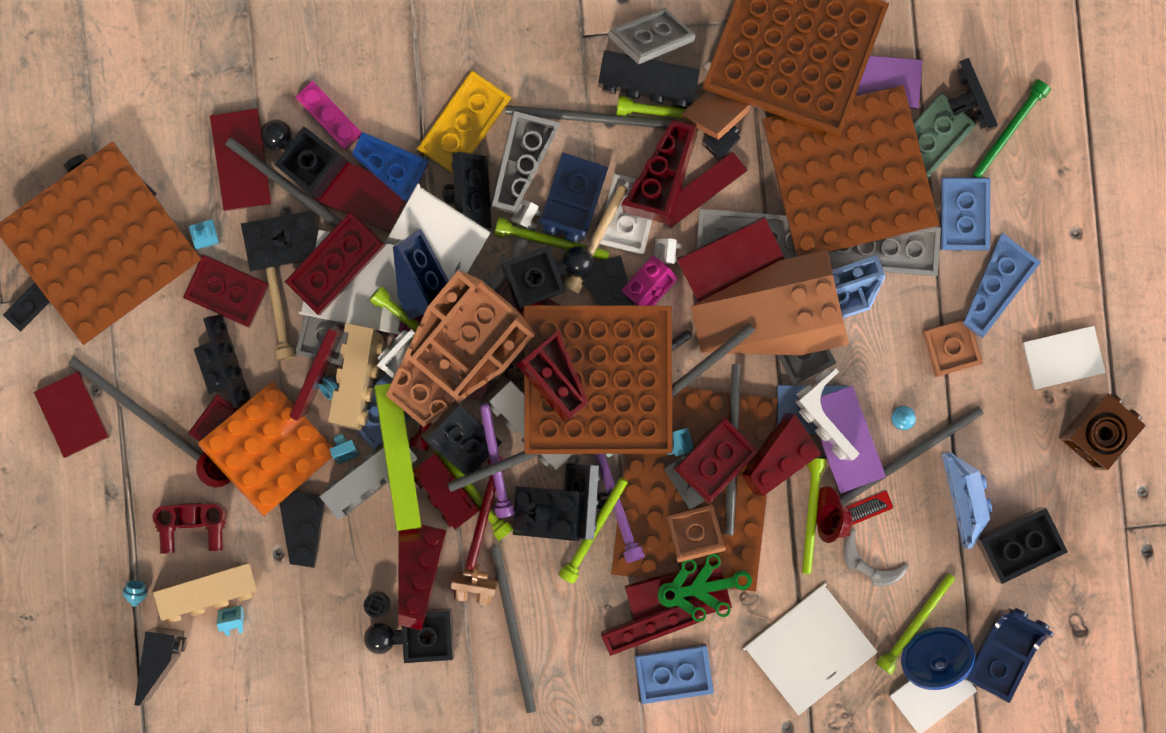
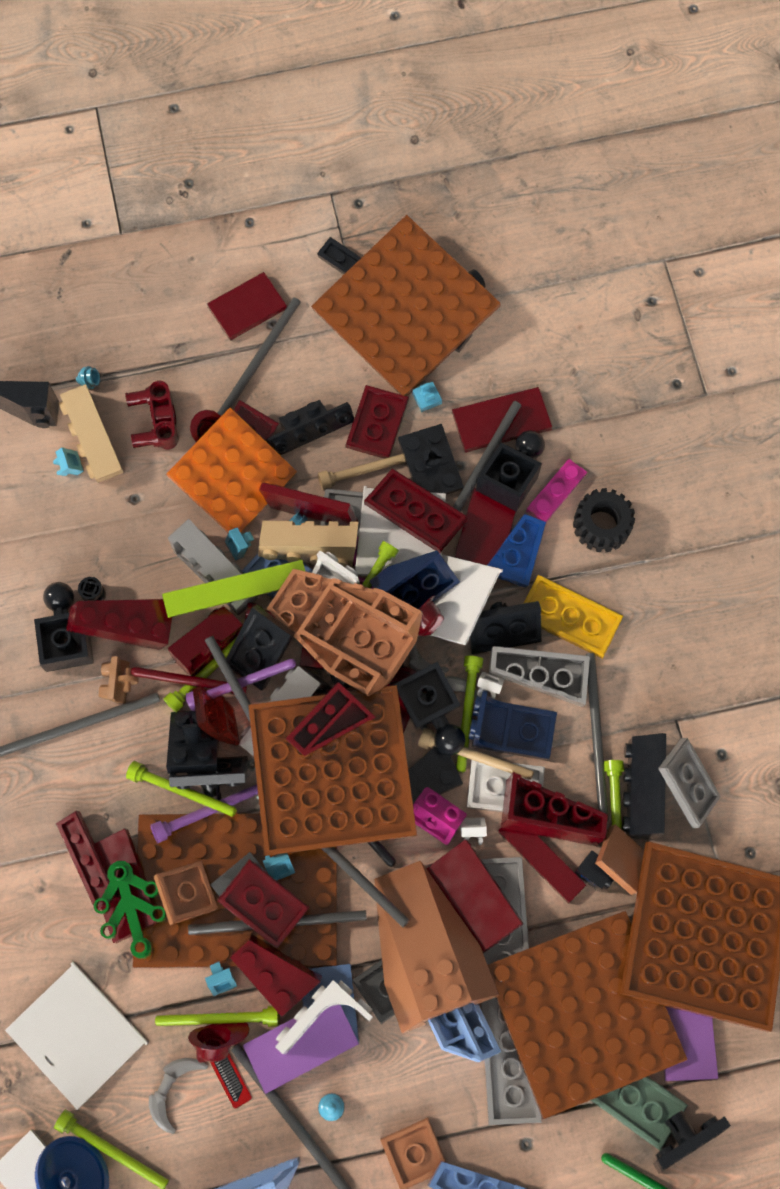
camera: 80 degrees right, 15 degrees down
(302, 526) = (160, 515): black wing -> none
(354, 58) = (609, 503): none -> black tyre
(455, 261) = (431, 617): none -> dark red piece
(527, 488) = (216, 716): none -> clear red slope
(674, 674) = (41, 892): medium blue tile -> none
(778, 509) = (221, 980): none -> medium azure tile
(965, 214) = (560, 1150): medium blue tile -> none

